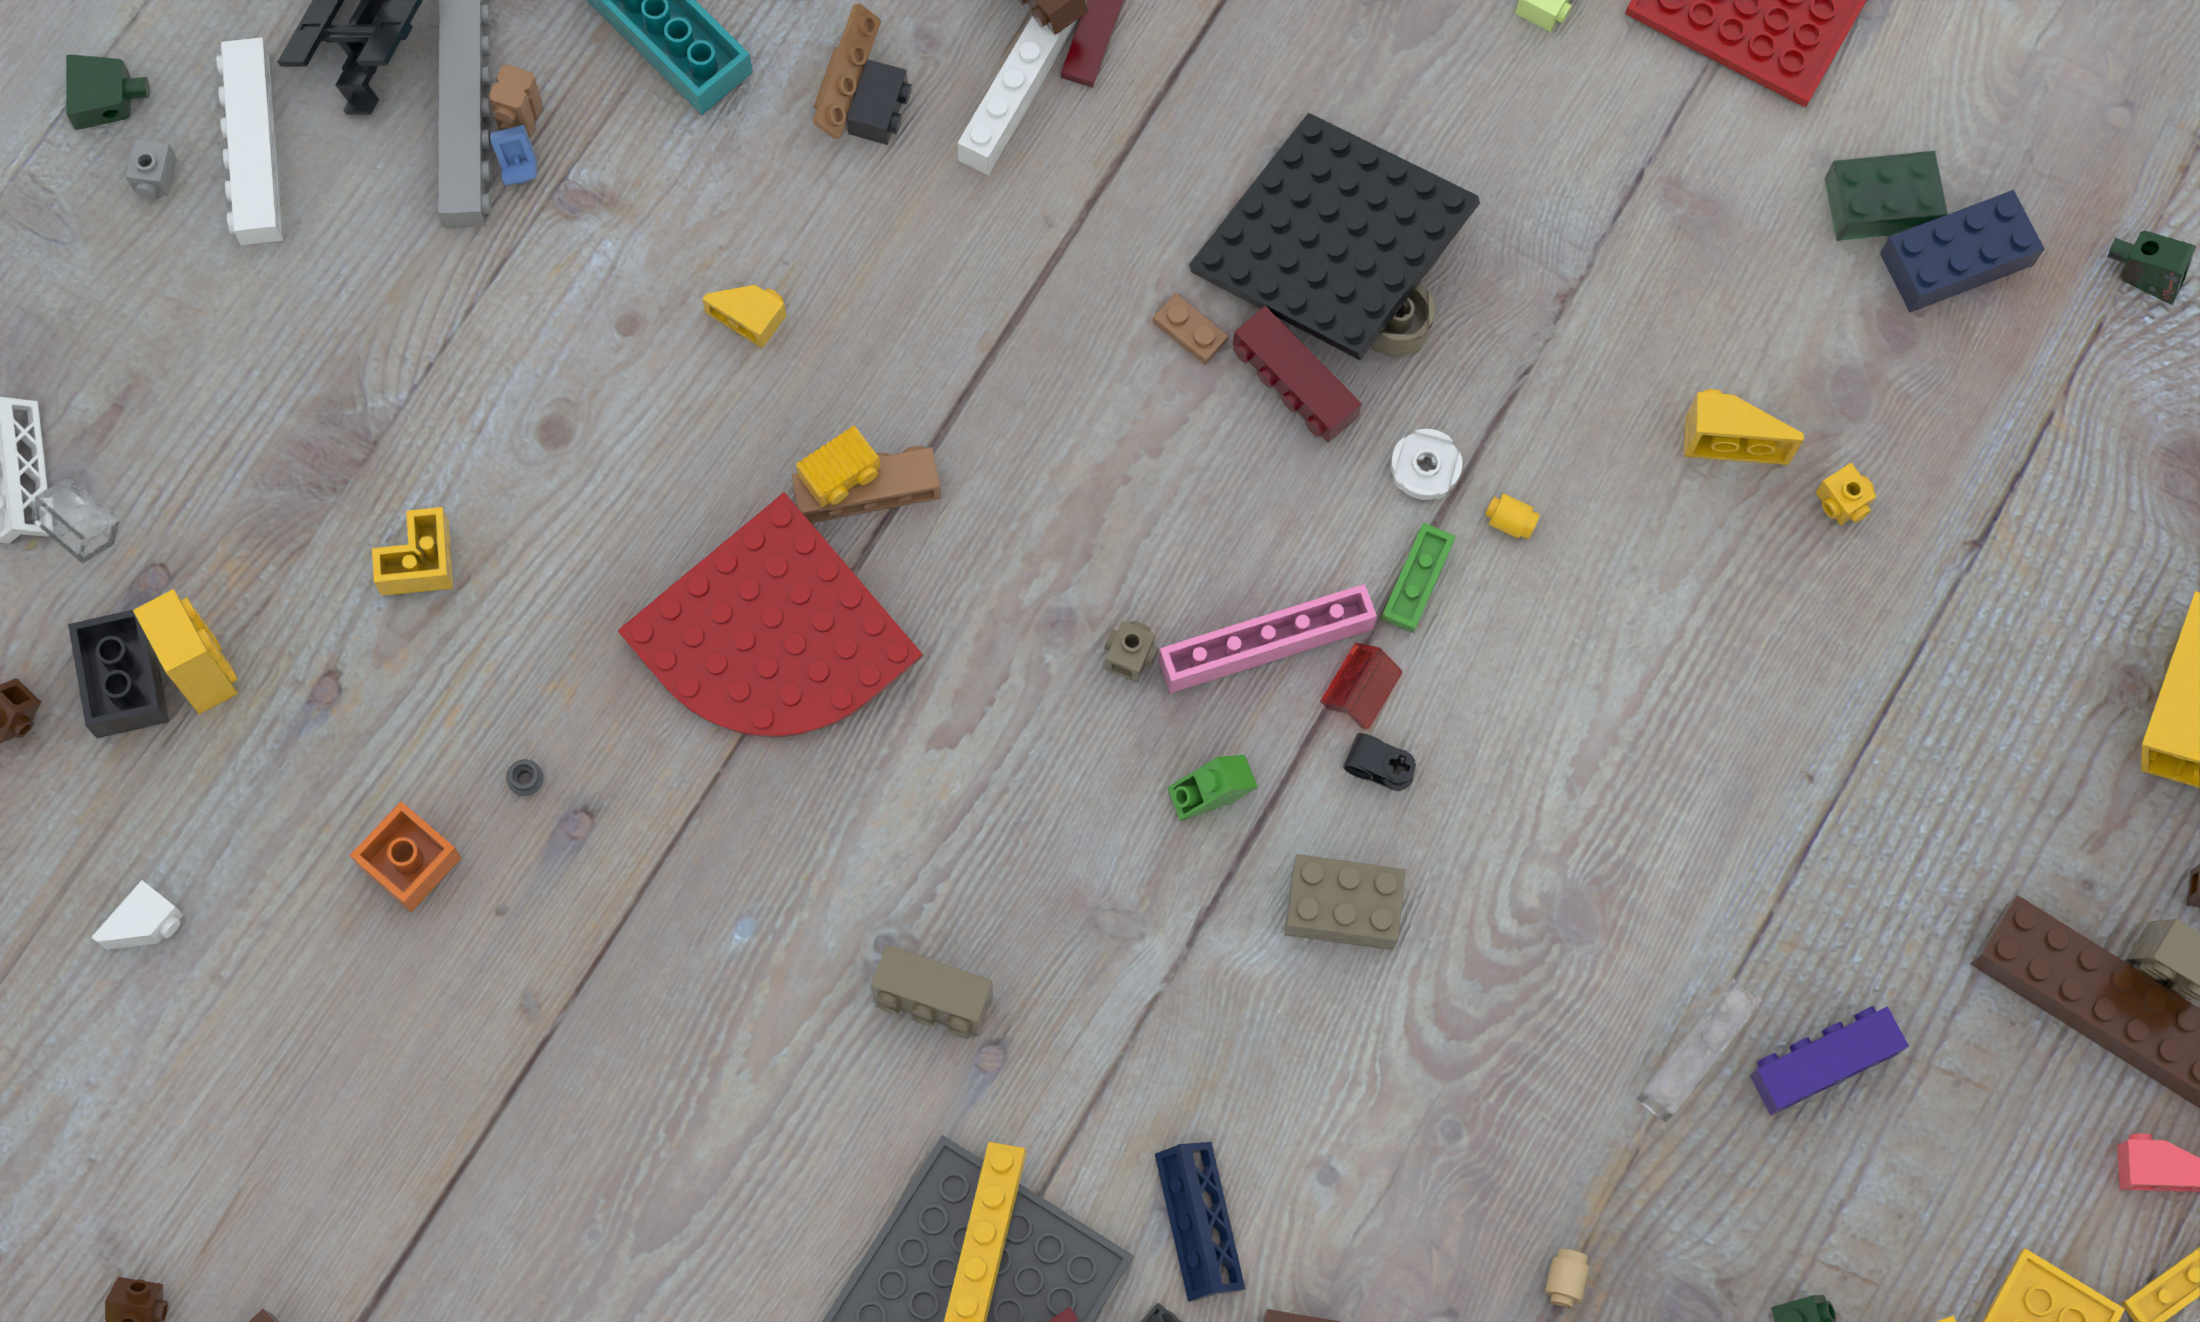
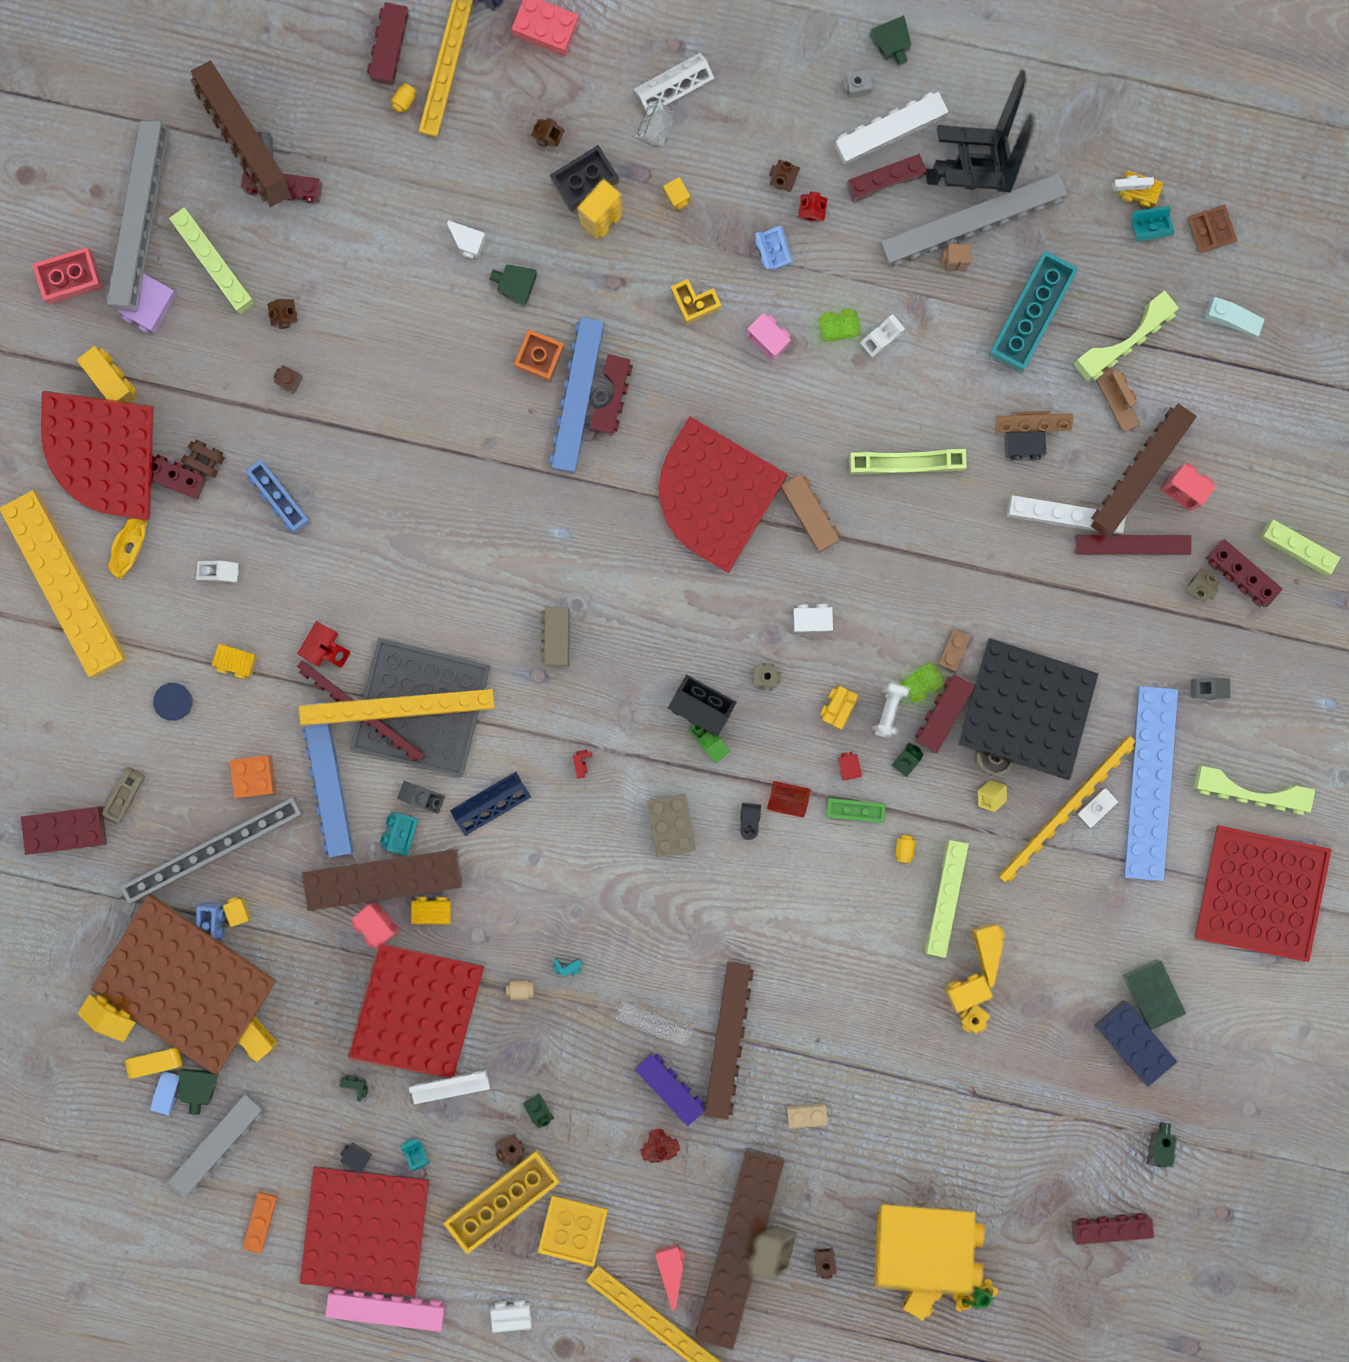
camera: 75 degrees right, 15 degrees up
(214, 526) = (677, 194): none -> yellow brick
(256, 859) = (515, 283): none -> dark green torso
(257, 336) = (784, 175): none -> reddish brown brick
(330, 188) = (874, 181): none -> dark red arch
(333, 307) = (812, 207): none -> red brick
(378, 394) = (773, 248): none -> light blue bracket
(489, 732) = (605, 419): none -> dark red arch
(505, 815) = (577, 396): none -> medium blue brick
(515, 155) = (928, 268): medium blue bracket -> none
(530, 449) = (769, 336): none -> bright pink brick
(556, 332) = (839, 325): none -> clear neon green brick
(602, 263) = (882, 336): none -> white brick
(747, 311) = (884, 420): yellow slope -> none
(827, 327) = (907, 462): none -> yellowish green arch
(839, 467) = (809, 496): yellow brick -> none
(1055, 540) = (813, 619): none -> white brick
(1146, 773) = (702, 705): none -> black brick
(1184, 1032) = (580, 766): none -> red bracket
(1227, 546) = (839, 707): none -> yellow brick
(1228, 396) = (922, 682): none -> clear neon green brick
(1261, 448) = (893, 695): none -> white fence
(1267, 638) = (795, 743): bright pink brick -> none
(1337, 562) = (849, 766): none -> red brick
(1356, 462) = (908, 759): none -> dark green bracket
(1443, 455) = (926, 804): white plate -> none
(1464, 345) = (992, 795): none -> light yellow panel
(1522, 92) = (1150, 783): none -> light blue plate
(1532, 245) = (1072, 803): none -> yellow plate
(1537, 187) = (1097, 807): none -> white plate
(1553, 1167) = (572, 968): none -> teal bracket
(1671, 499) = (947, 897): none -> yellowish green arch
(1767, 929) = (727, 1040): none -> reddish brown brick
(1803, 488) = (968, 993): none -> yellow brick
(1931, 1112) = (659, 1147): none -> clear red plant
(1942, 833) = (807, 1115): none -> tan brick

